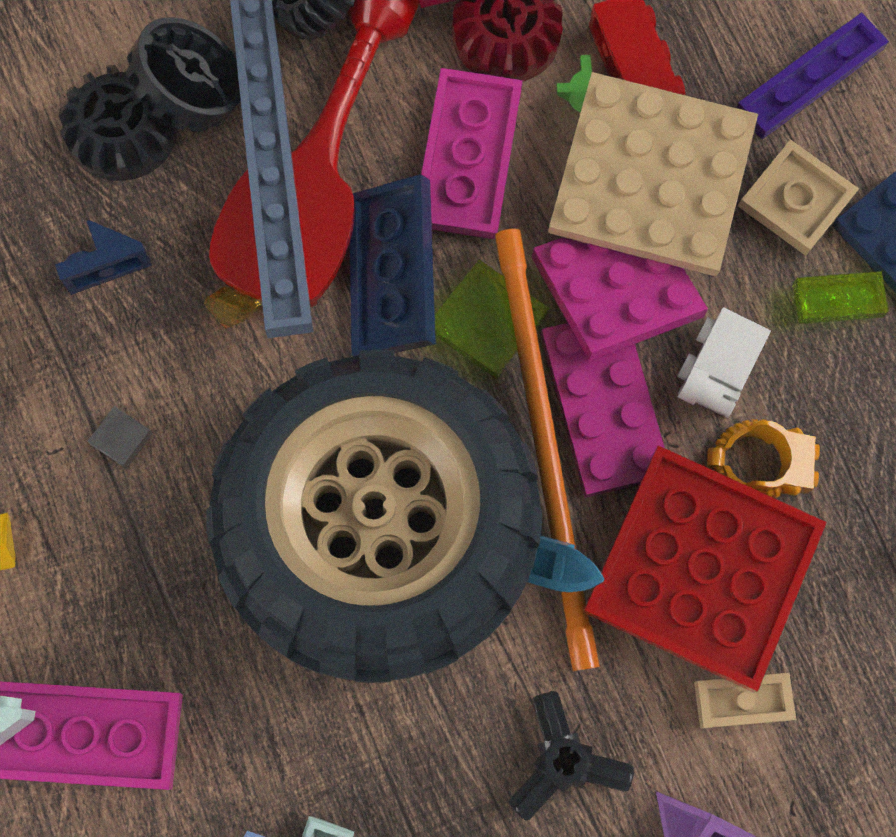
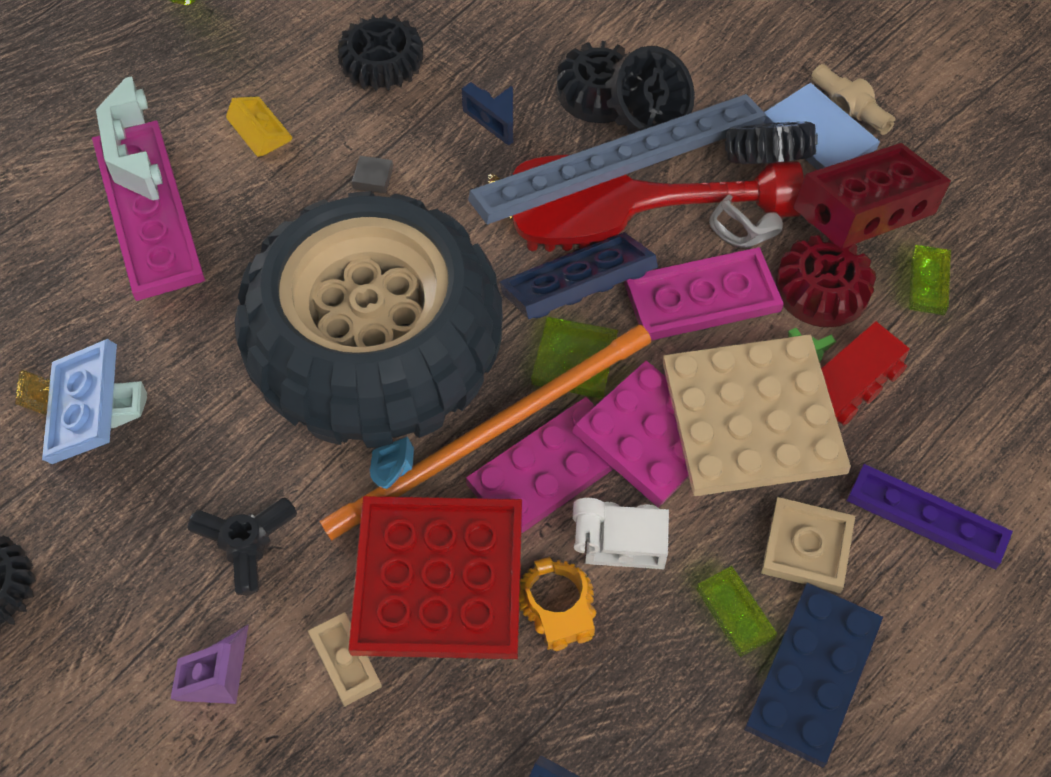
camera: 70 degrees right, 15 degrees down
(417, 55) = (764, 229): none -> light grey piece

